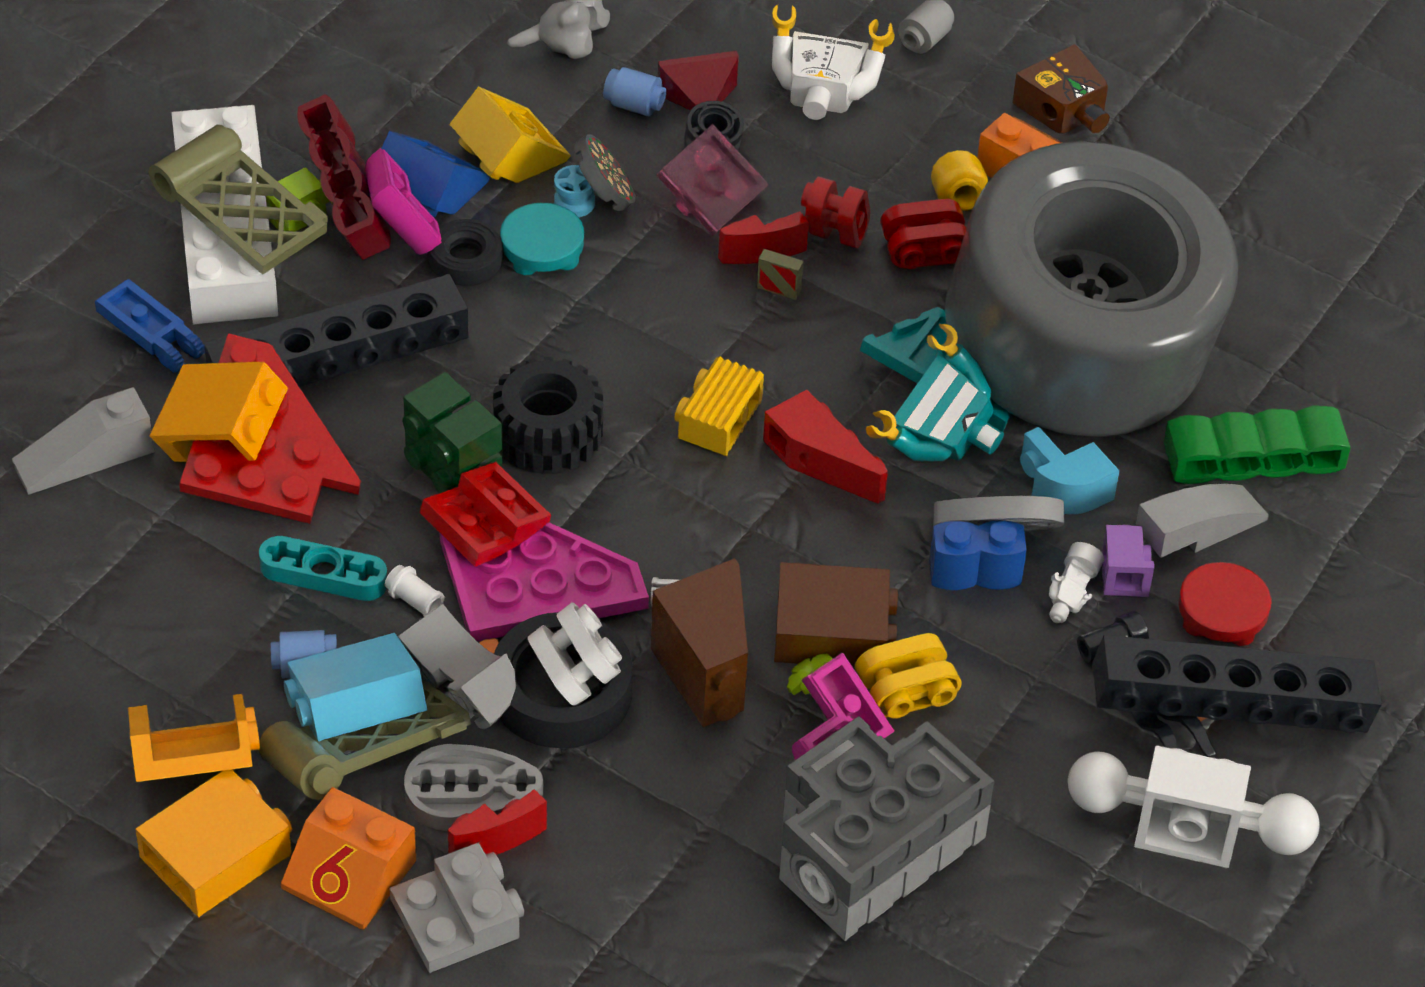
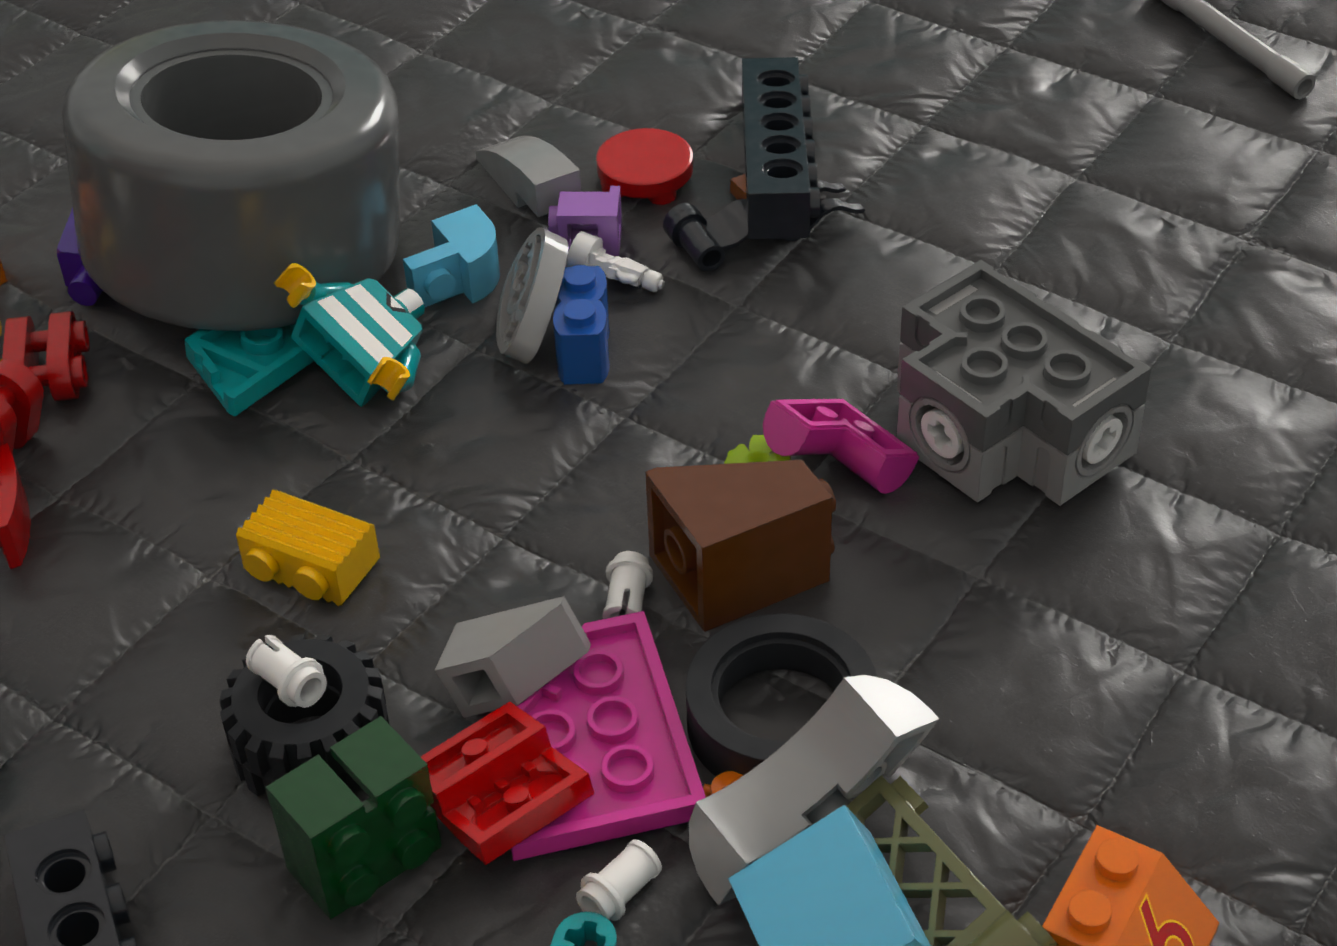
camera: 85 degrees left, 5 degrees down
(458, 908) = (1177, 801): light grey plate -> none
(464, 764) = (993, 788): light grey piece -> none
(498, 833) = (1055, 776): red slope -> none
(543, 383) = (298, 679): none -> white pin
(596, 512) = (509, 654): none -> light grey slope
(597, 654) = (738, 644): white brick -> none
(780, 274) = (78, 489): olive tile -> none
(819, 446) = (393, 453): red slope -> none
(832, 611) = (663, 427): reddish brown brick -> none
(909, 675) = (752, 383): yellow brick -> none
(1193, 805) = (938, 177): white brick -> none
(1250, 445) = (428, 131): green brick -> none

